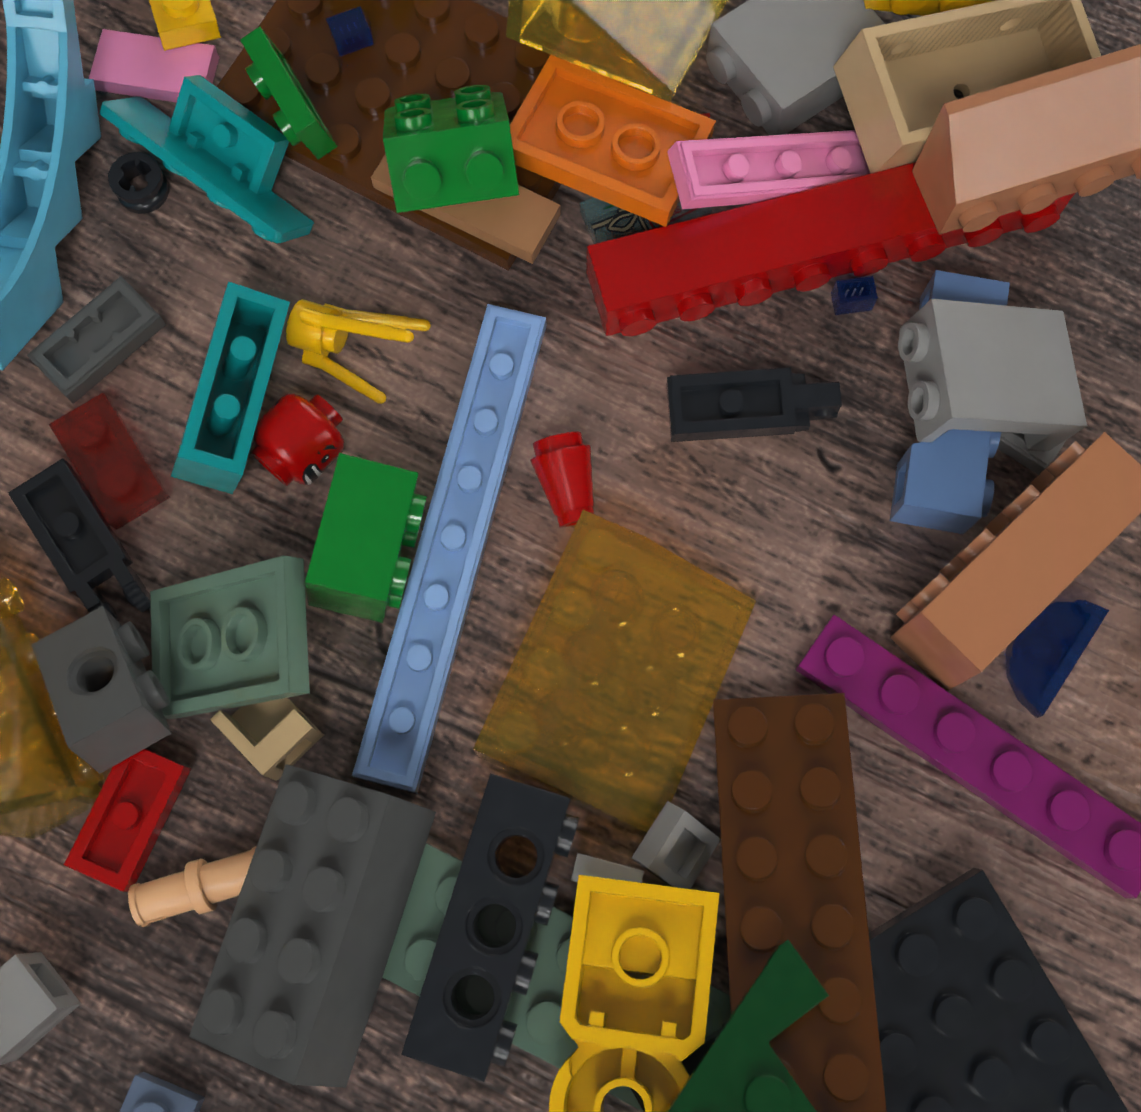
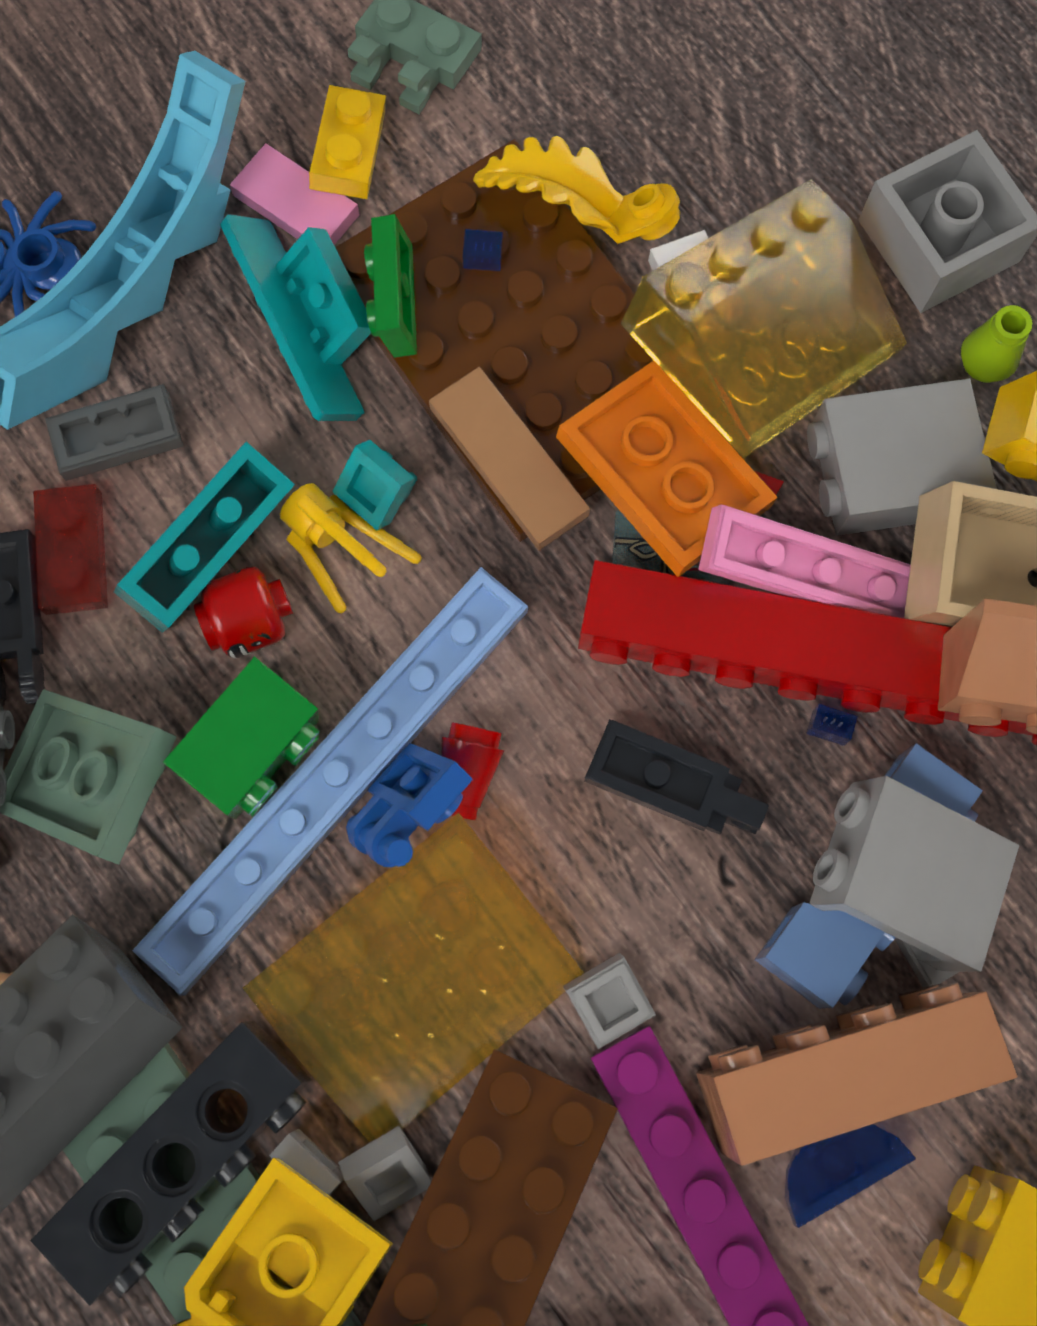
camera: 25 degrees right, 0 degrees up
(131, 166) = (209, 299): black bush -> none
(269, 734) = (75, 879): tan panel -> none
(357, 275) = (374, 484): none -> teal tile
(449, 149) = (511, 407): green bracket -> none
(526, 522) = (410, 793): none -> blue plate
(788, 611) = (609, 1000): none -> light grey tile

